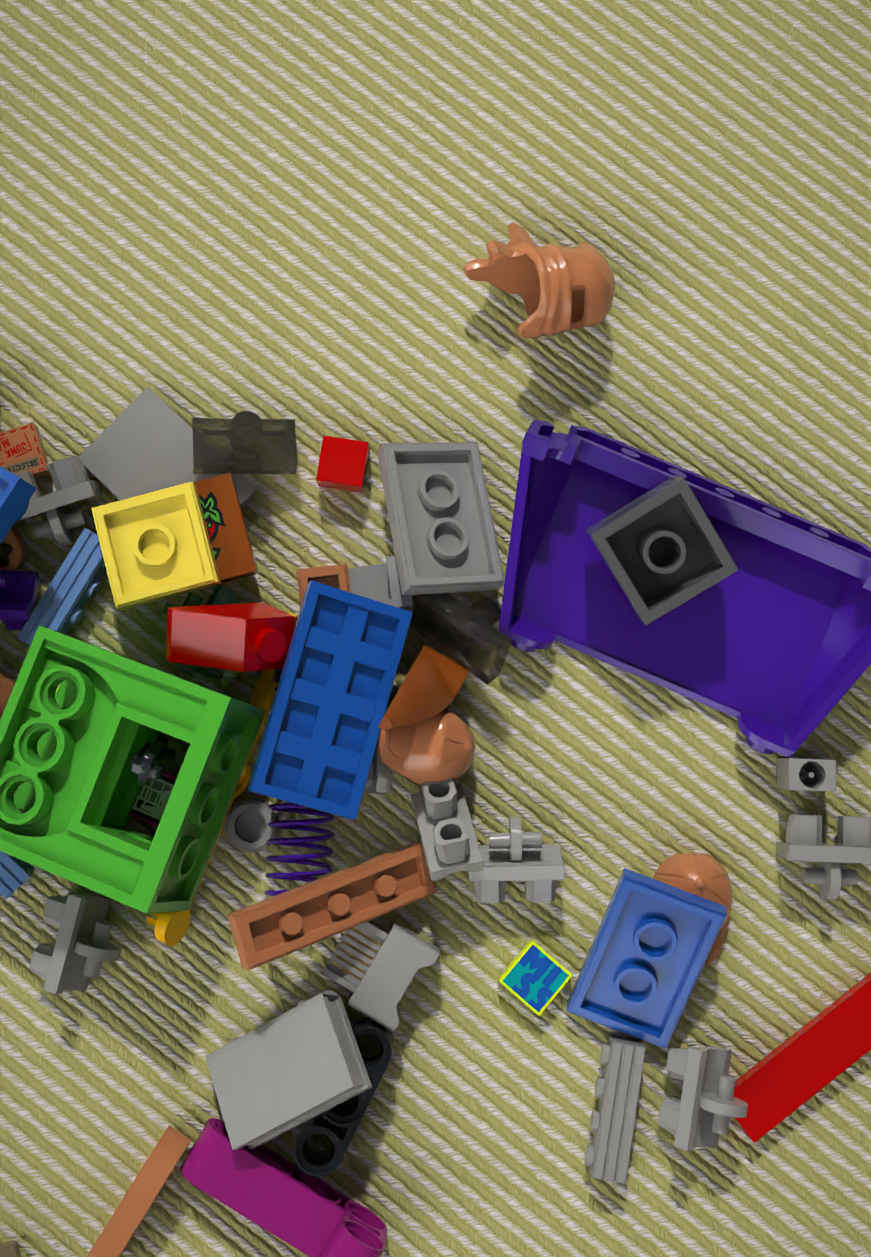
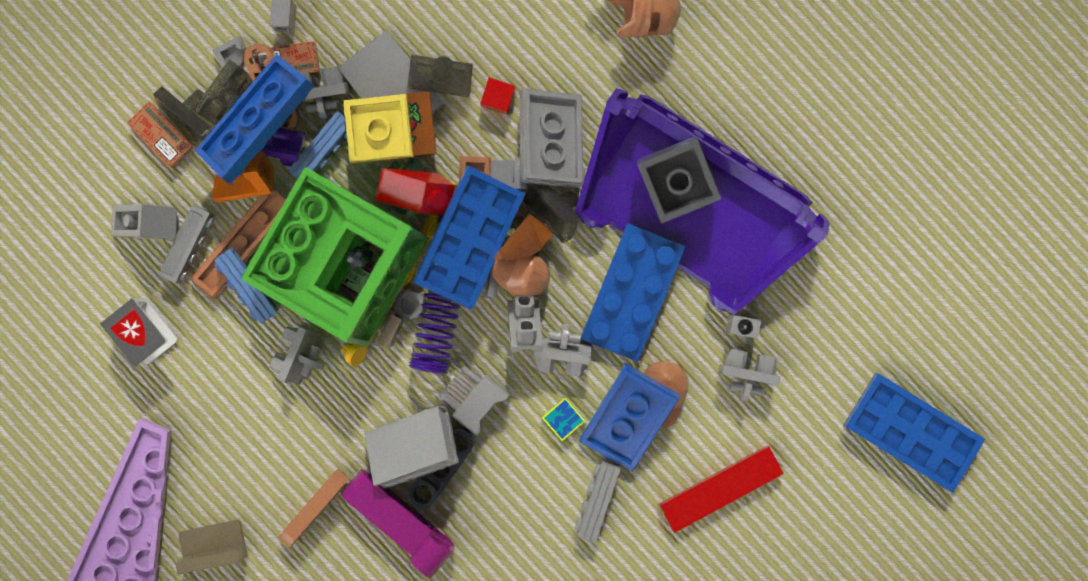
camera: 15 degrees right, 5 degrees up
(224, 875) = (390, 330): none -> dark tan tile
(330, 905) = (451, 356): nougat tile -> none
(614, 747) = (632, 292): none -> blue plate
(705, 1097) = (649, 502): light grey hips -> none

